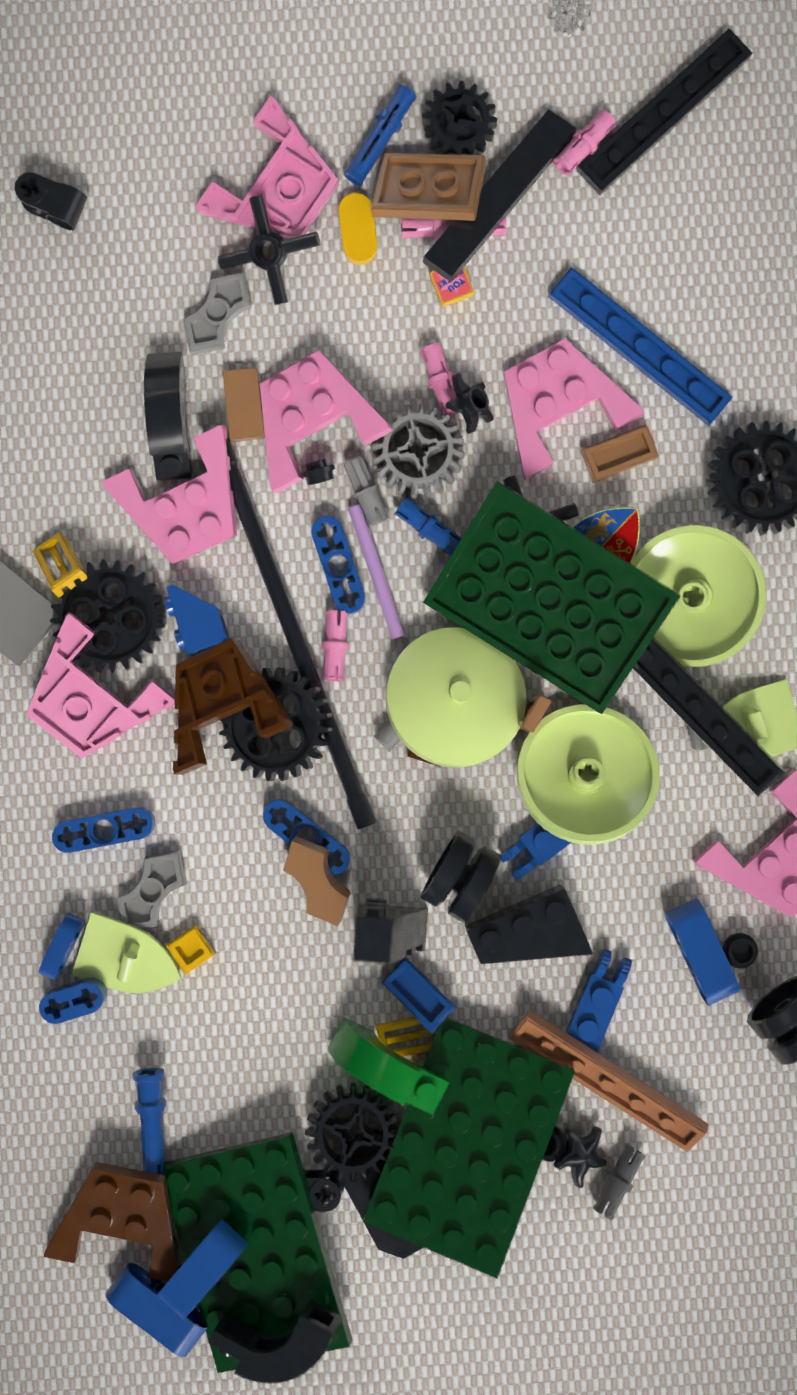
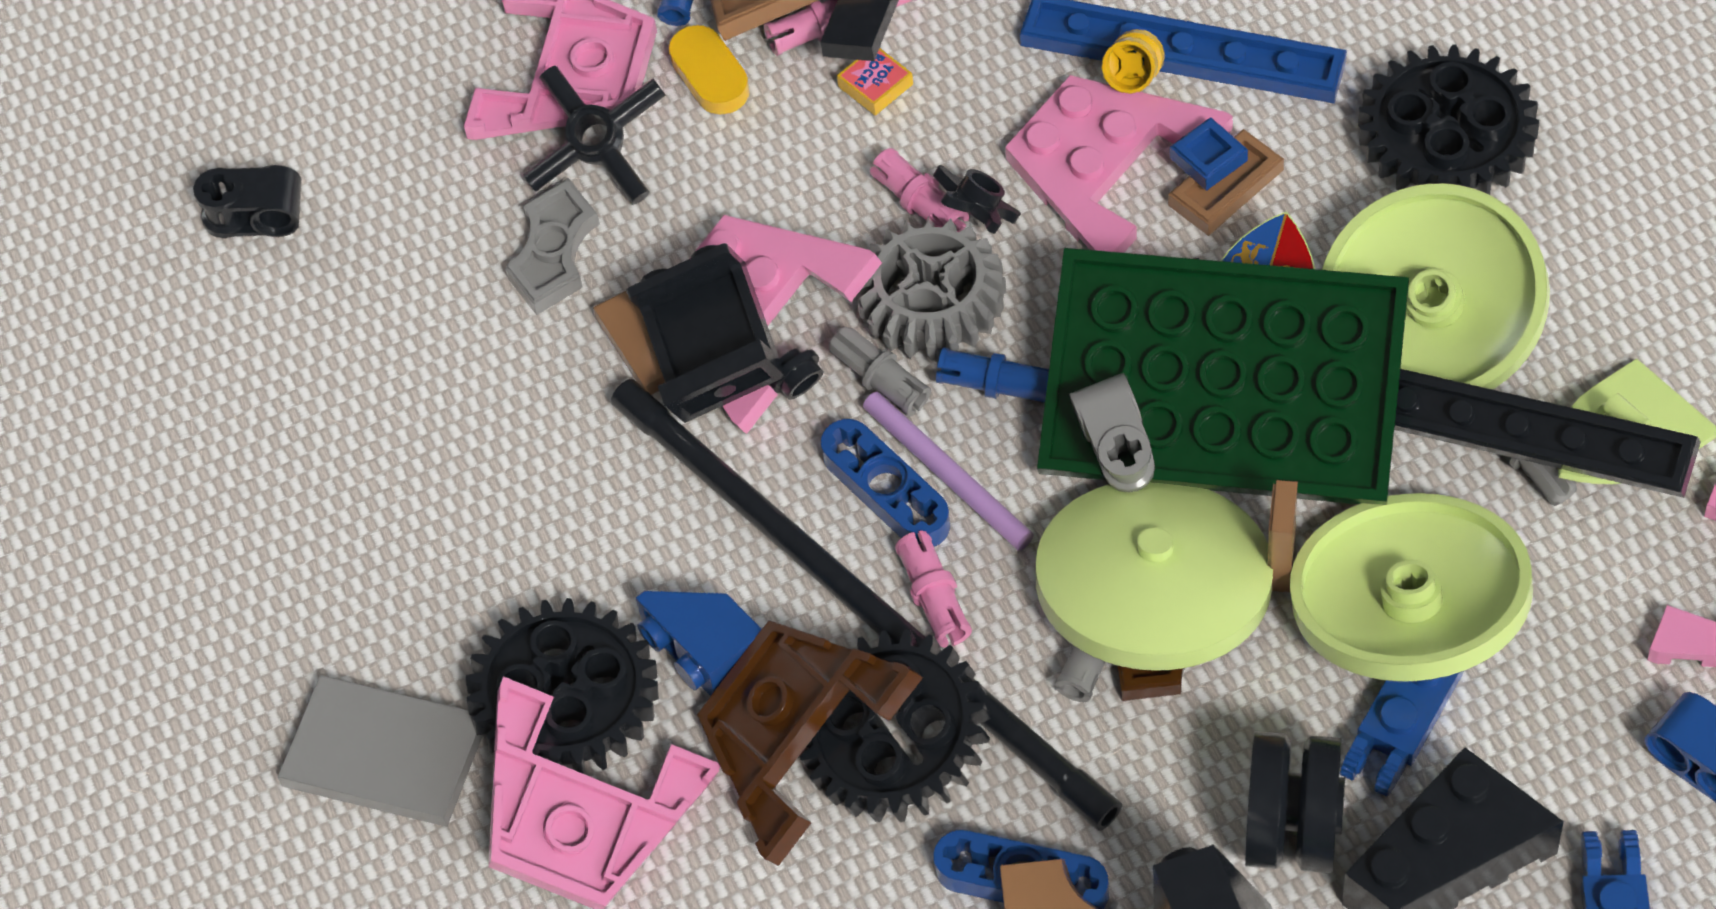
camera: 15 degrees left, 30 degrees down
(67, 576) = (449, 648): yellow tile -> none
(165, 415) = (543, 389): black arch -> none
(190, 515) = (627, 505): bright pink wing -> none
(275, 429) = (706, 331): none -> black panel
(471, 603) = (1112, 427): none -> light grey piece
(604, 350) = (1125, 69): none -> yellow wheel
(617, 435) = (1208, 153): none -> blue tile

